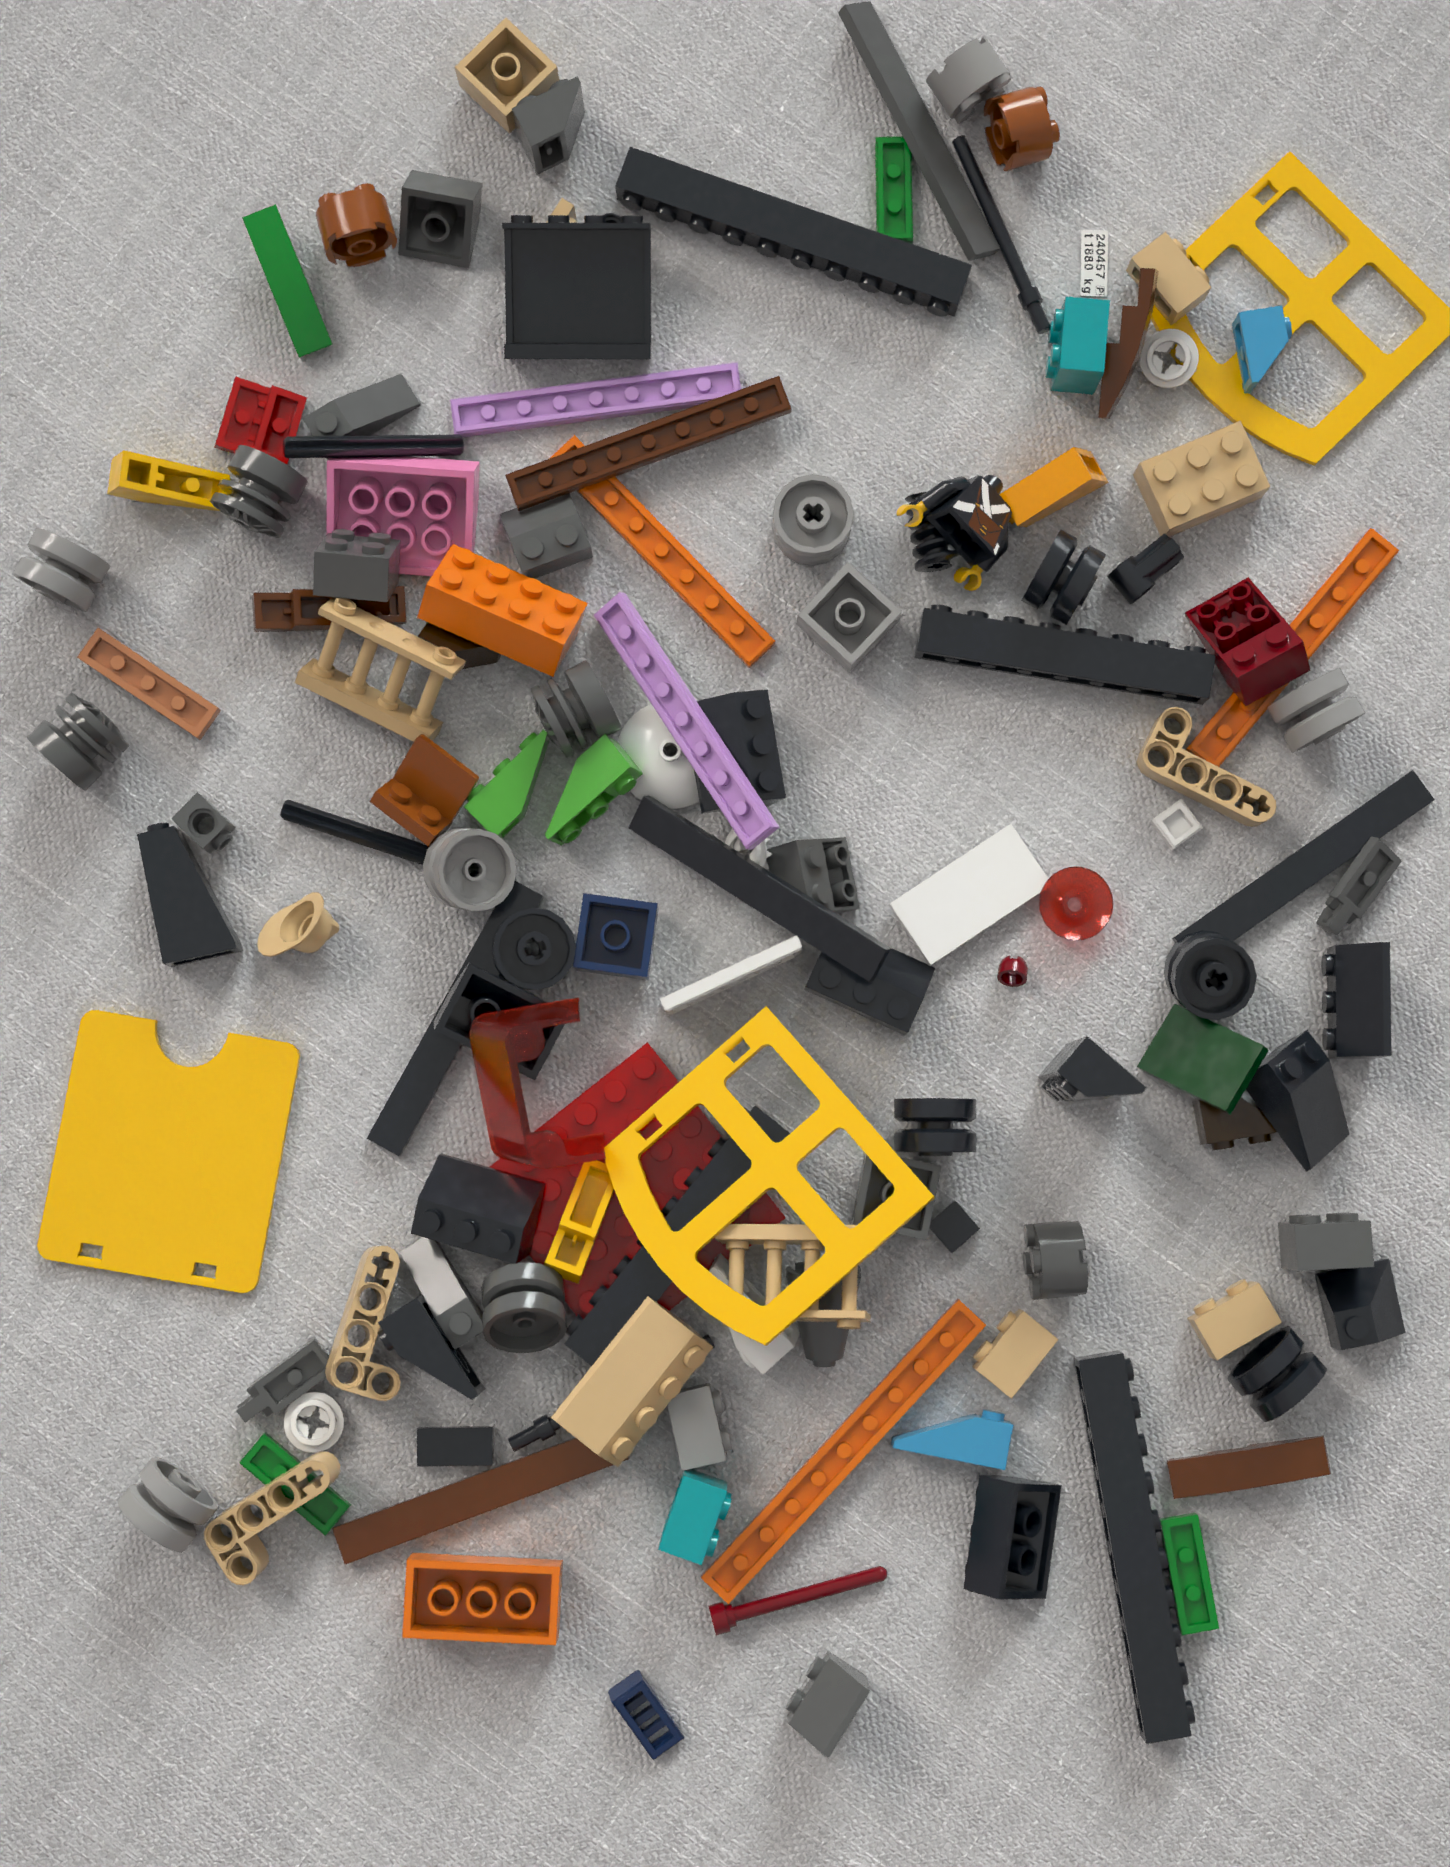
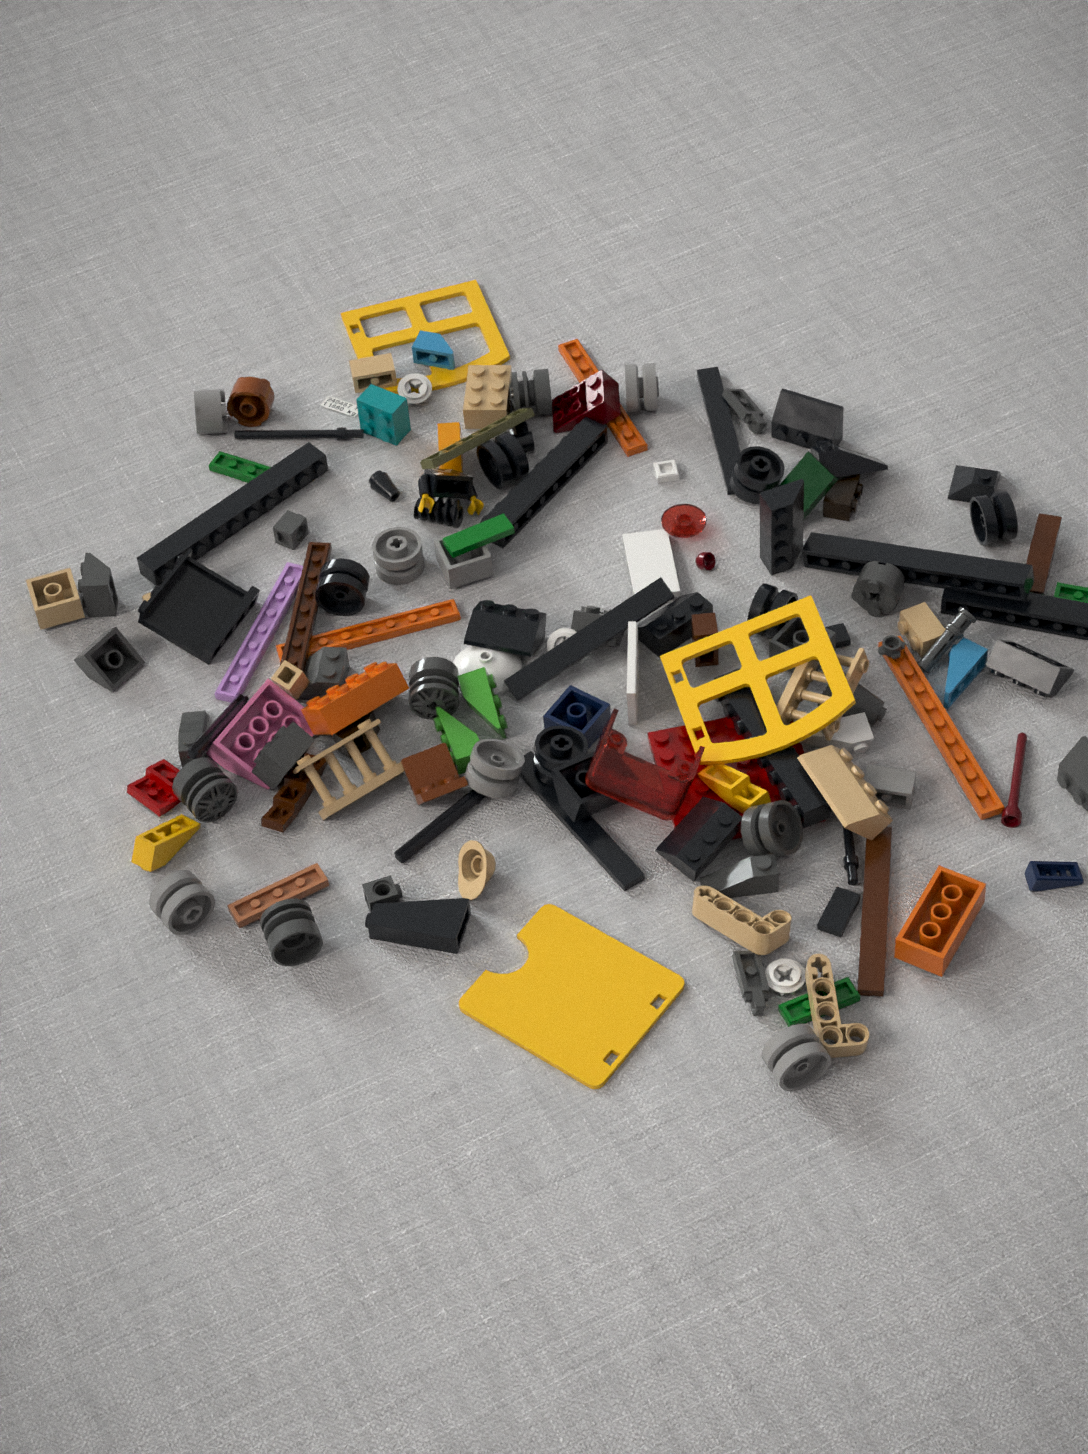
camera: 60 degrees left, 35 degrees down
(287, 280) = (89, 739): green slope -> none
(355, 226) = (86, 692): dark orange brick -> none
(423, 1343) = (773, 884): black slope -> none
(491, 502) = (290, 679): none -> tan brick
(686, 721) = (478, 638): lavender tile -> none
(693, 1516) = (941, 797): teal brick -> none
(708, 475) = (342, 587): none -> black wheel
(799, 333) = (290, 530): none -> dark grey brick
(842, 1049) = (704, 626): none -> reddish brown brick
(878, 626) = (478, 535): none -> green tile
(919, 130) = (214, 446): dark grey tile -> none
(948, 422) = (383, 485): none -> black cone
(956, 1334) = (891, 646): none -> dark grey plate
(1011, 1408) = (953, 631): none -> dark grey pin
(1075, 522) = (477, 438): none -> olive tile
(1118, 1304) = (921, 566): none -> black brick
(1123, 356) = (390, 383): reddish brown slope -> none
(1208, 774) = (642, 453): tan beam -> none
(1228, 546) = (531, 392): none -> dark grey wheel
(1233, 1319) = (954, 531): tan brick -> none
(1323, 1245) = (931, 476): dark grey brick -> none

